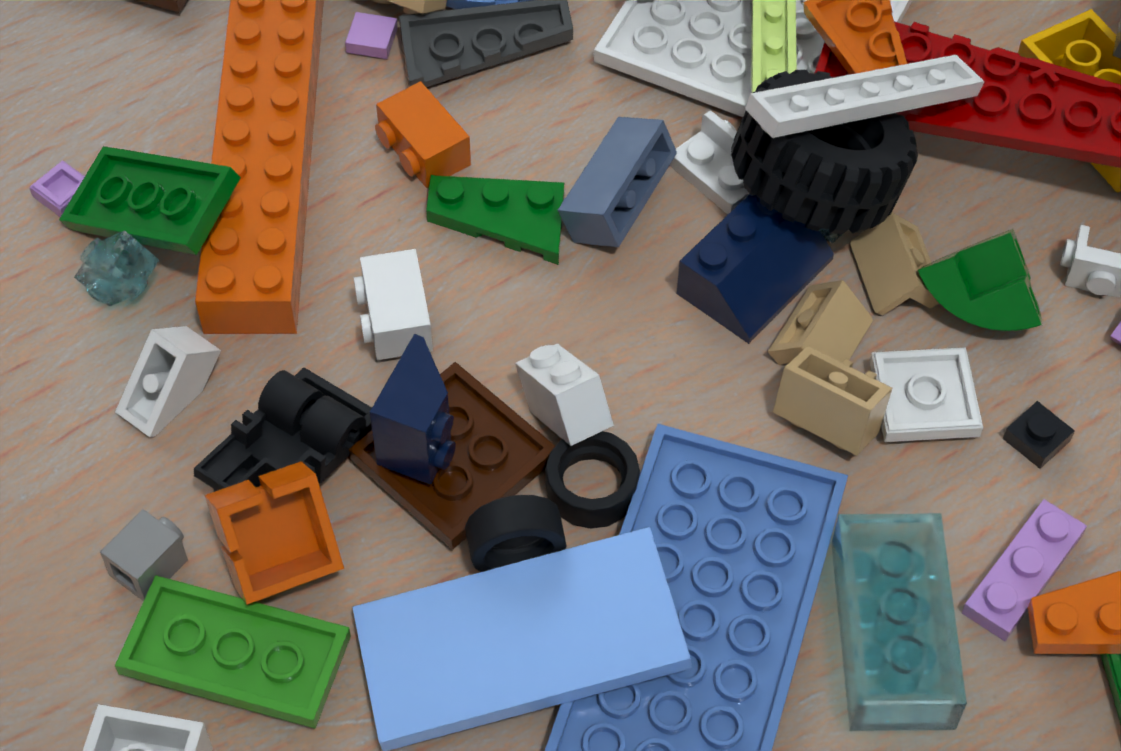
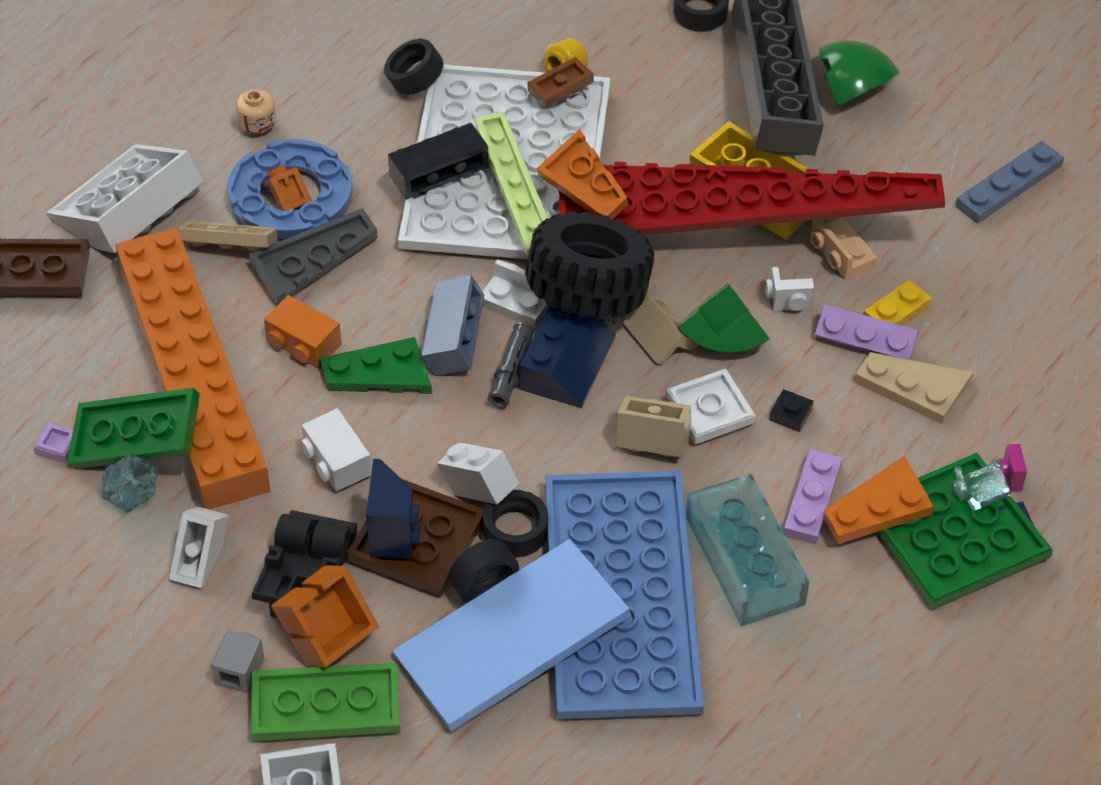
camera: 20 degrees left, 5 degrees down
(371, 35) = (231, 273): lavender tile -> none
(664, 267) = (507, 374): none -> dark grey pin
(826, 320) = (626, 375): tan panel -> none
(862, 95) = (606, 220): white plate -> none

